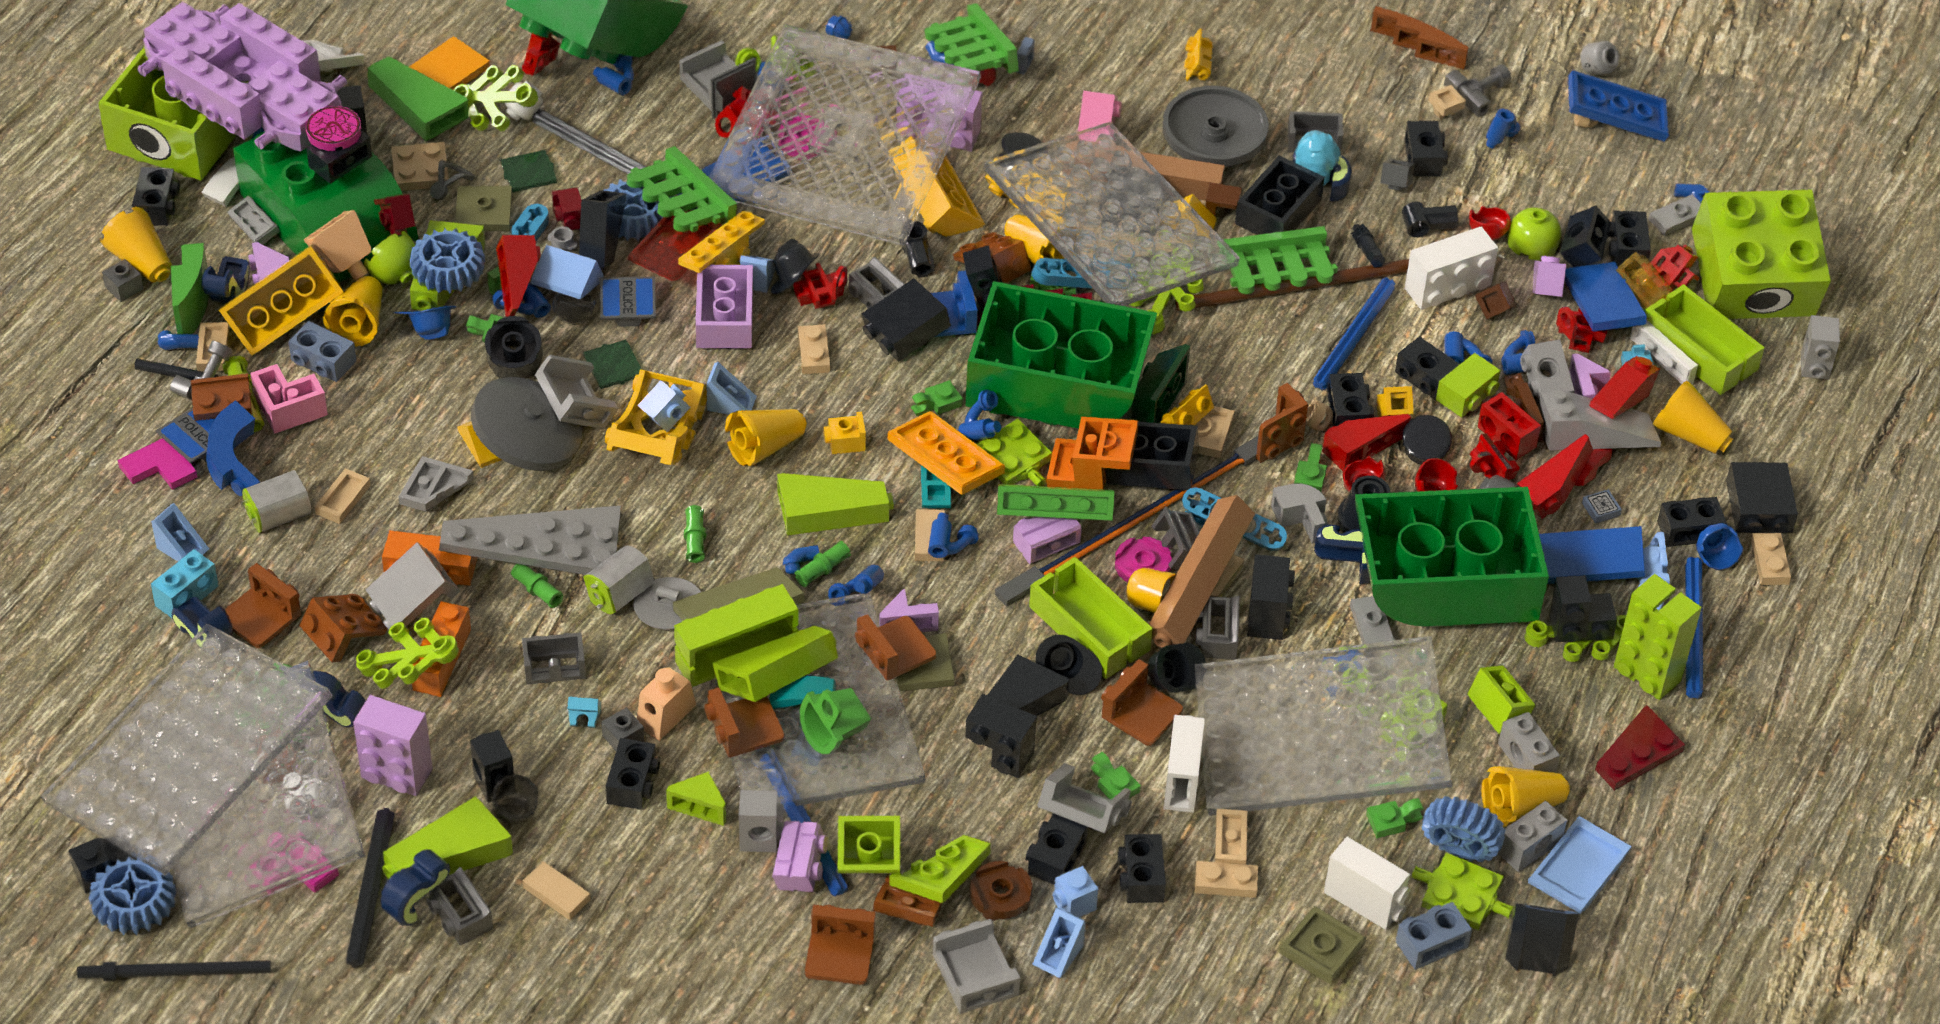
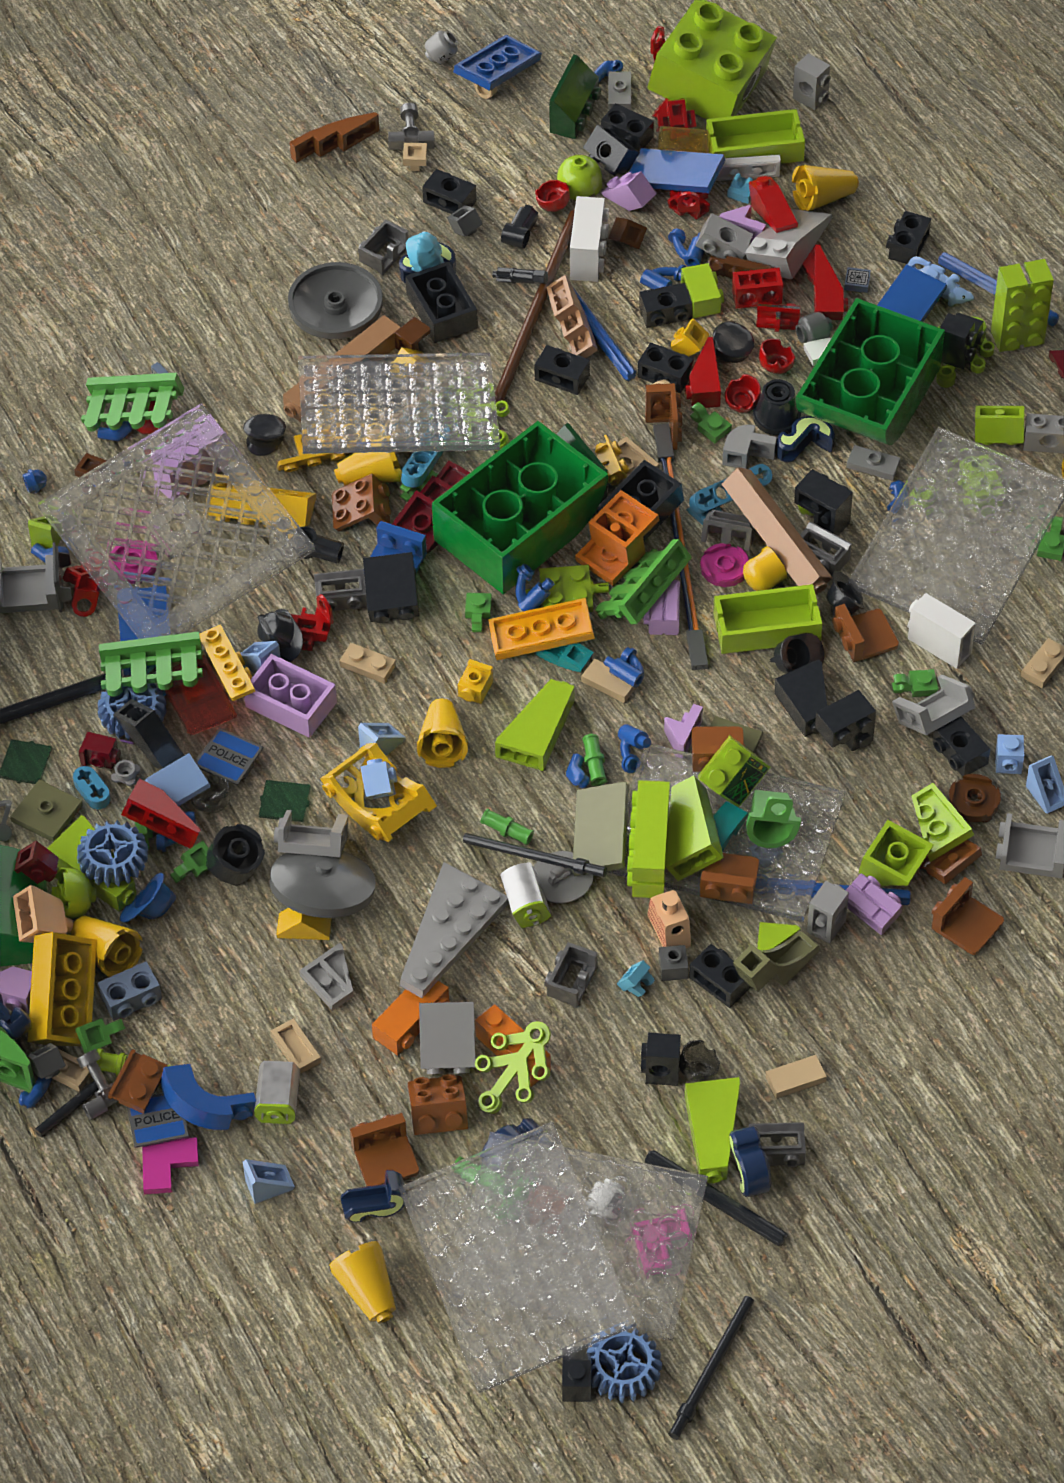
camera: 55 degrees left, 5 degrees up
(107, 657) = (366, 1280): none -> yellow cone
(187, 578) = (322, 1195): medium azure brick -> none
(198, 324) = (46, 1061): none -> dark grey plate
(258, 348) = (96, 1033): none -> bright green plate
(288, 403) = (173, 1041): bright pink brick -> none
(393, 745) = (608, 1113): lavender brick -> none
(537, 585) = (487, 953): bright green pin -> none
(672, 598) = (579, 866): none -> black bar
(672, 813) = (780, 963): none -> olive arch
(747, 54) = (21, 556): lime plate -> none
(859, 658) = (733, 771): none -> lime slope
(981, 273) = (398, 511): black brick -> none
(1098, 109) = (273, 363): bright pink brick -> none
(1146, 867) = (1010, 701): black brick -> none
(1198, 56) = (246, 276): yellow hinge -> none
(1231, 836) = (1013, 640): tan plate -> none
(1278, 327) = (562, 369): none -> black brick
(1283, 246) = (492, 320): bright green fence -> none
(1350, 303) = (571, 317): none -> medium nougat slope
(1503, 125) = (468, 137): blue plant -> none
(1624, 177) = (573, 99): none -> dark green slope
(1719, 546) = (943, 235): blue hair -> none
(1761, 497) = (914, 188): black brick -> none
(1770, 559) = (966, 216): tan plate -> none

